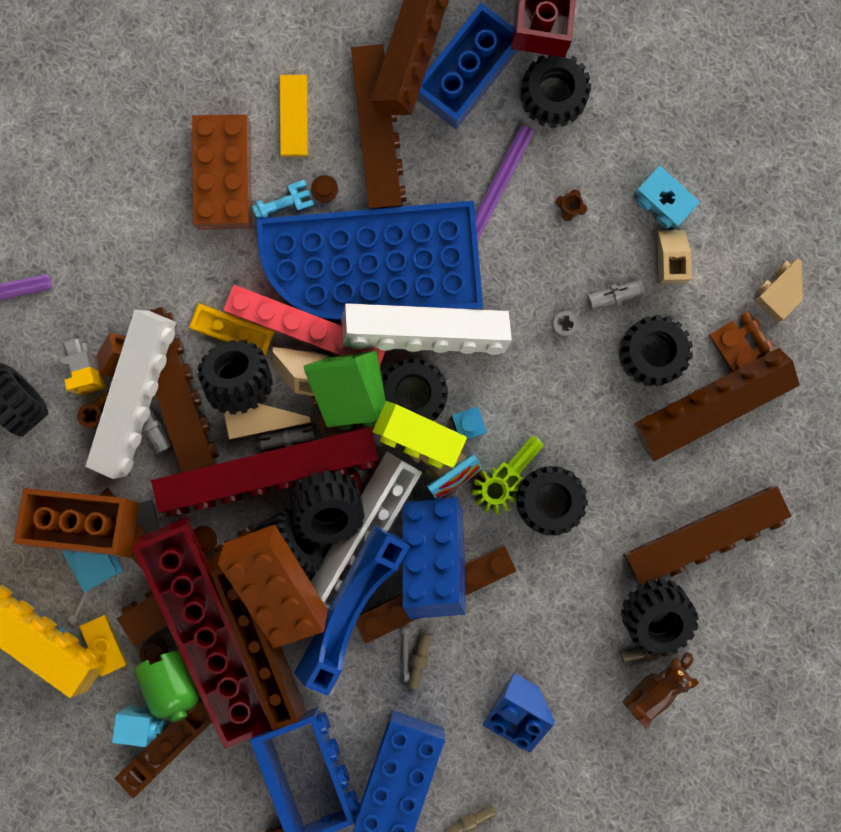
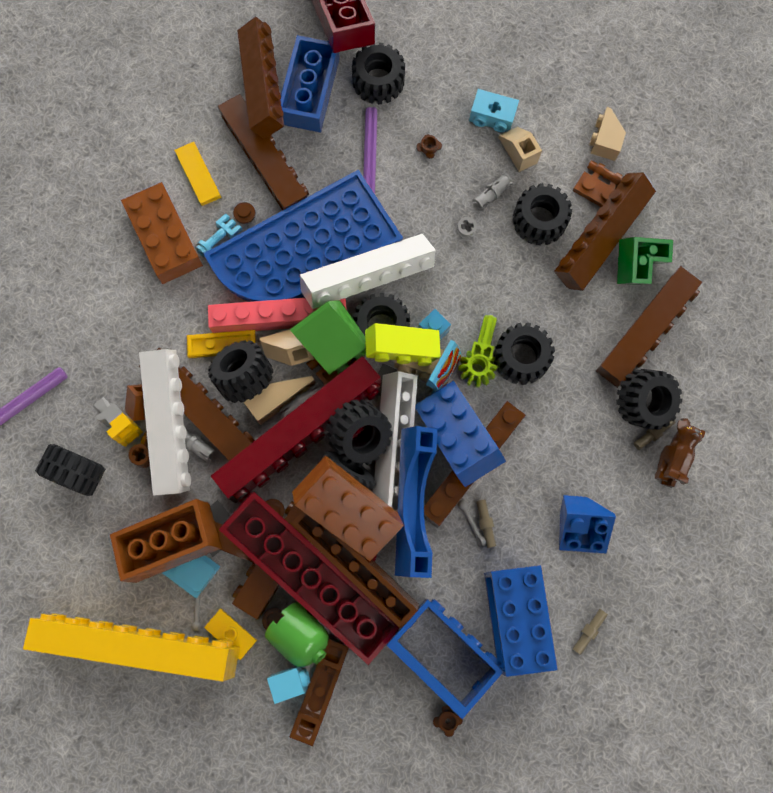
camera: 30 degrees left, 10 degrees down
(734, 453) = (637, 258): none -> green brick

